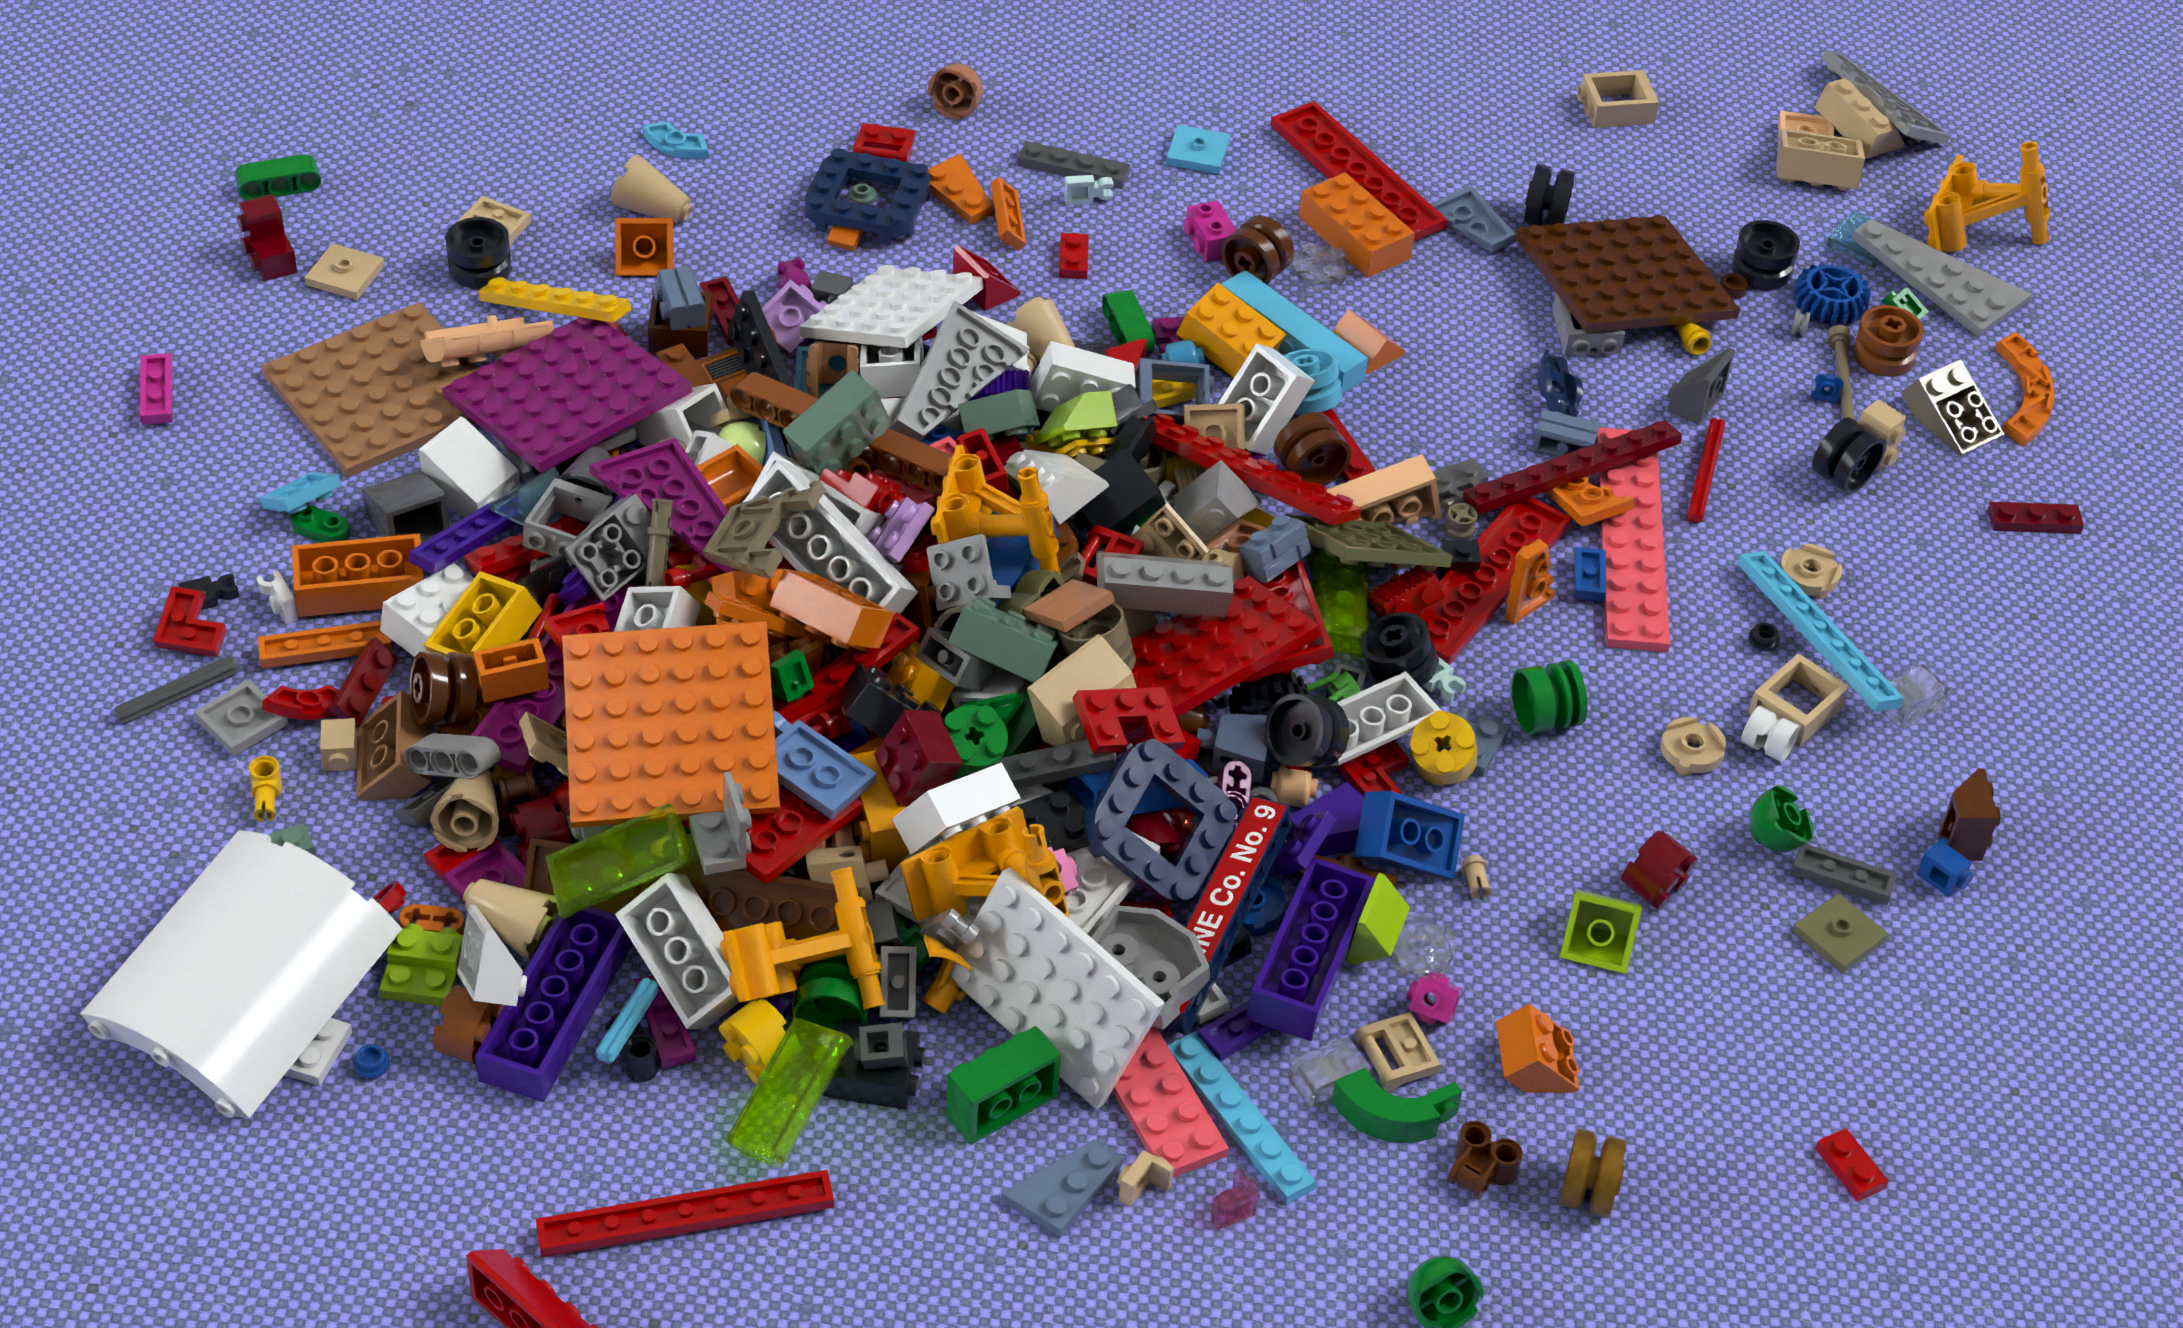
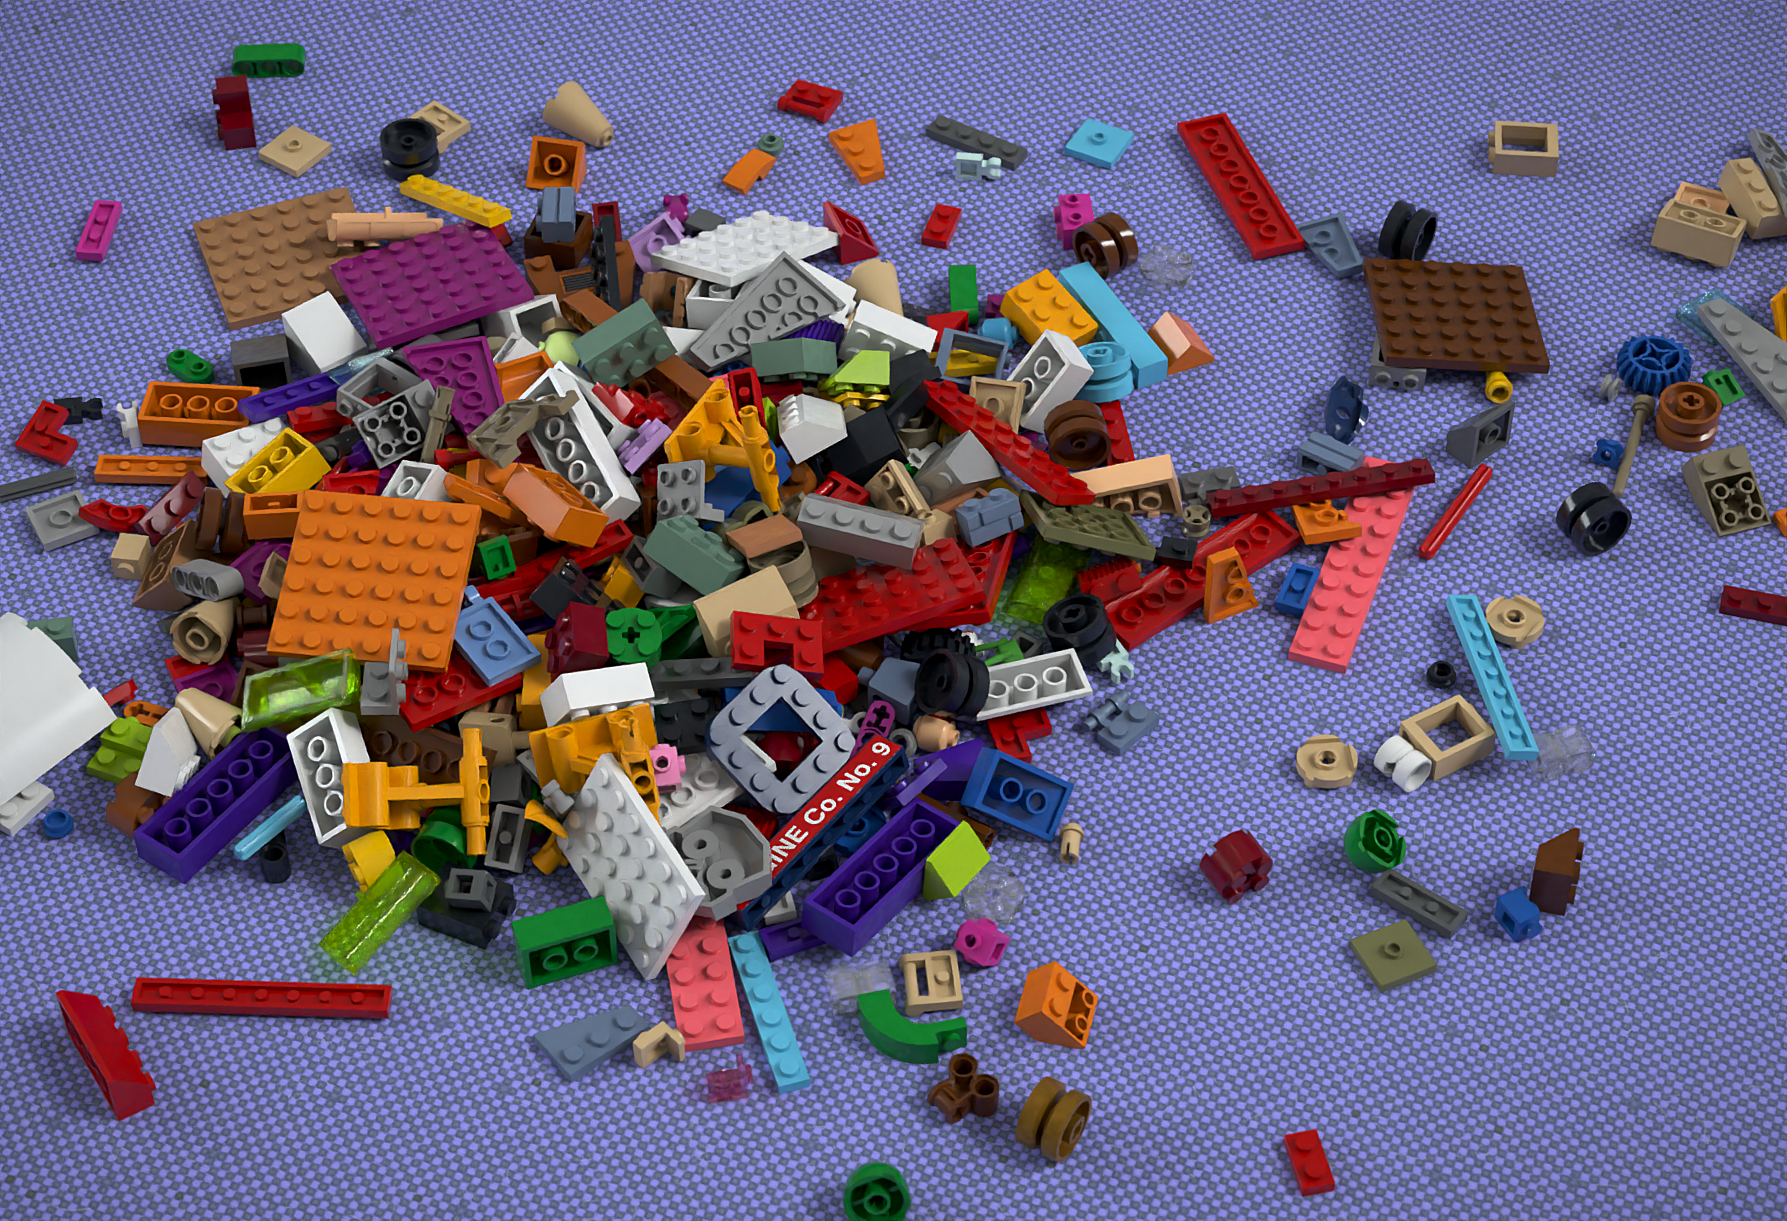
camera: 20 degrees right, 0 degrees up
(266, 786) = (60, 581): yellow pin -> none
(295, 494) = (172, 339): medium azure plate -> none
(668, 1031) = (306, 852): magenta plate -> none
(675, 142) = (624, 74): medium azure tile -> none
(840, 167) = (729, 144): dark blue plate -> none
(956, 90) = (891, 59): nougat cylinder -> none
(1008, 214) = (895, 179): orange plate -> none
(1357, 224) = (1215, 234): orange brick -> none
(1440, 731) = (1083, 723): yellow brick -> none
(1549, 697) = (1202, 694): green wheel -> none
(1601, 931) = (1163, 911): lime slope -> none
(1734, 285) = (1561, 343): reddish brown tile -> none
(1766, 254) = (1601, 317): black wheel -> none
(1886, 424) = (1639, 498): tan brick -> none

